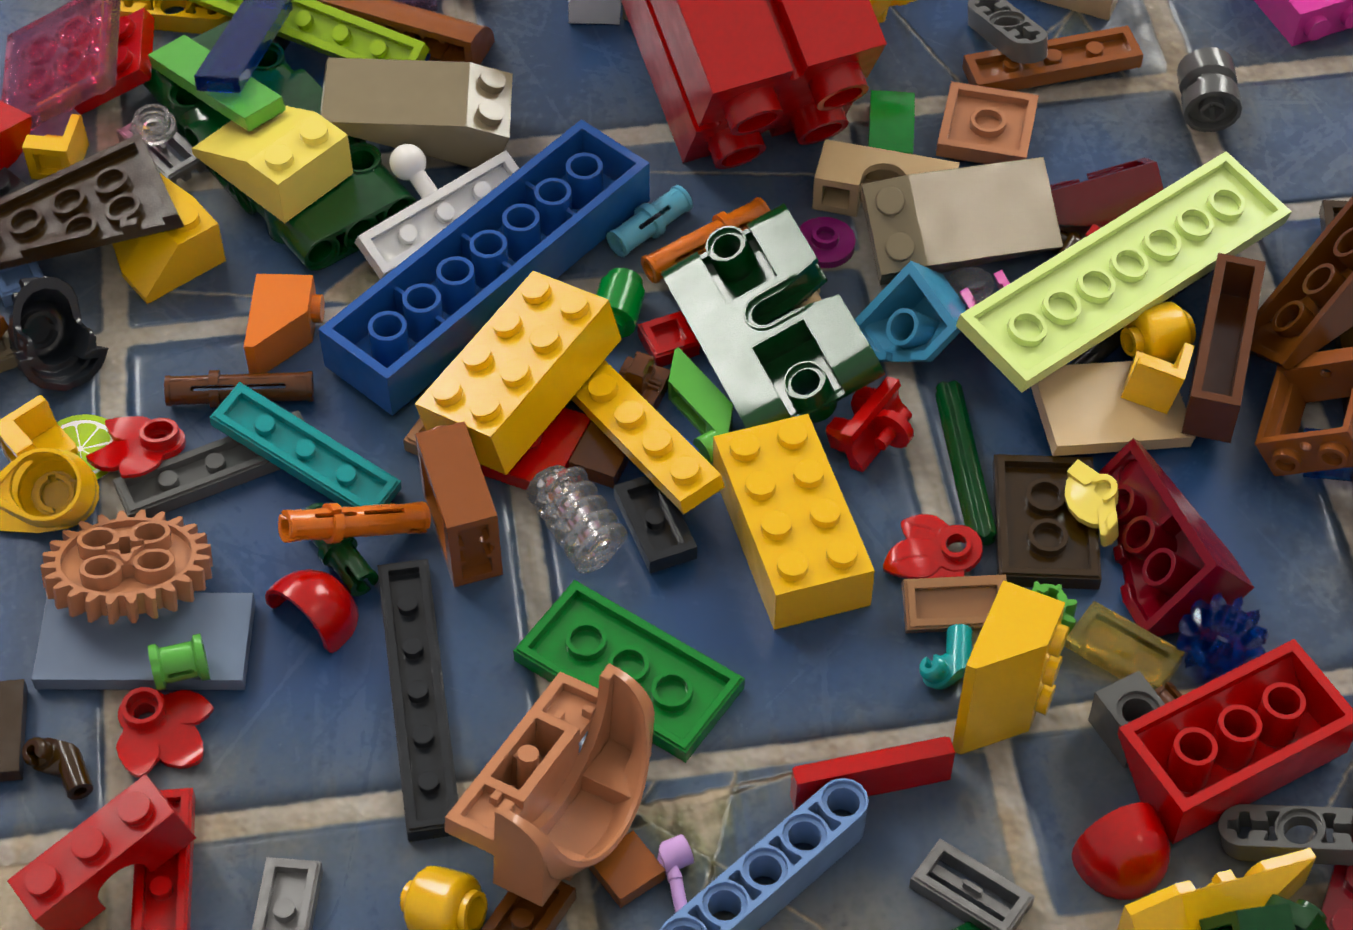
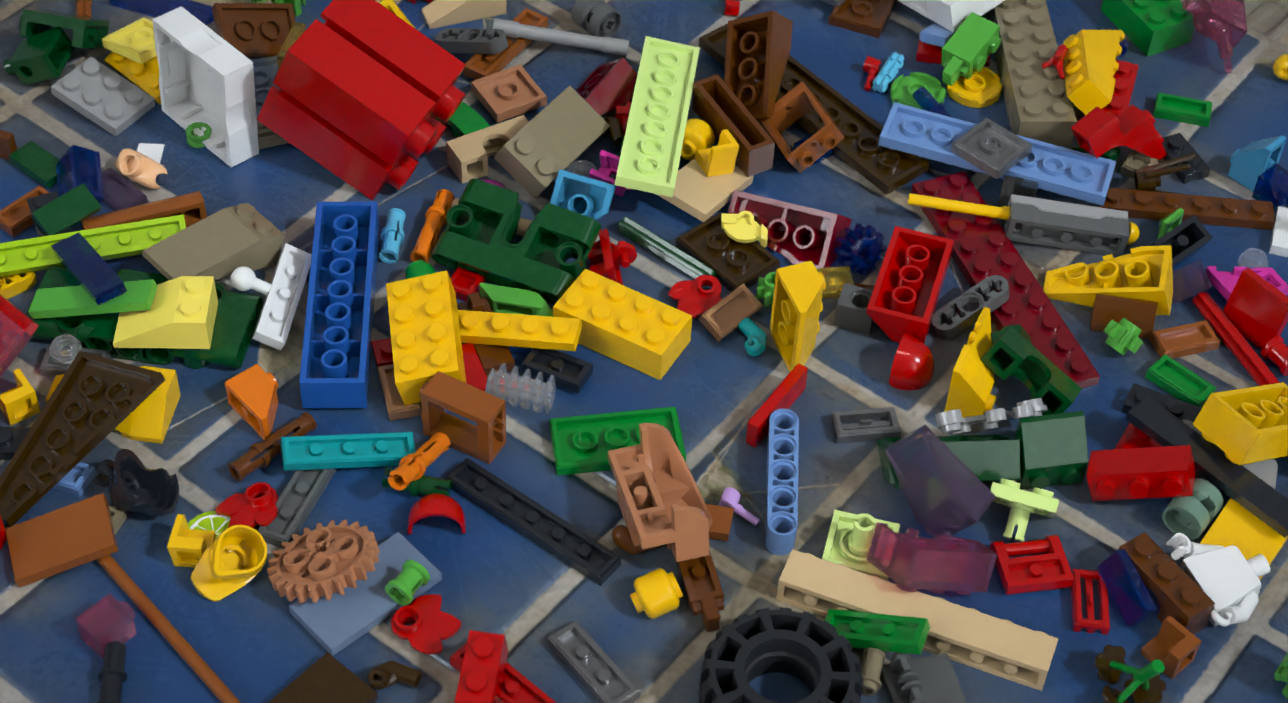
camera: 45 degrees left, 5 degrees down
(1184, 134) = (603, 44): none -> light grey piece

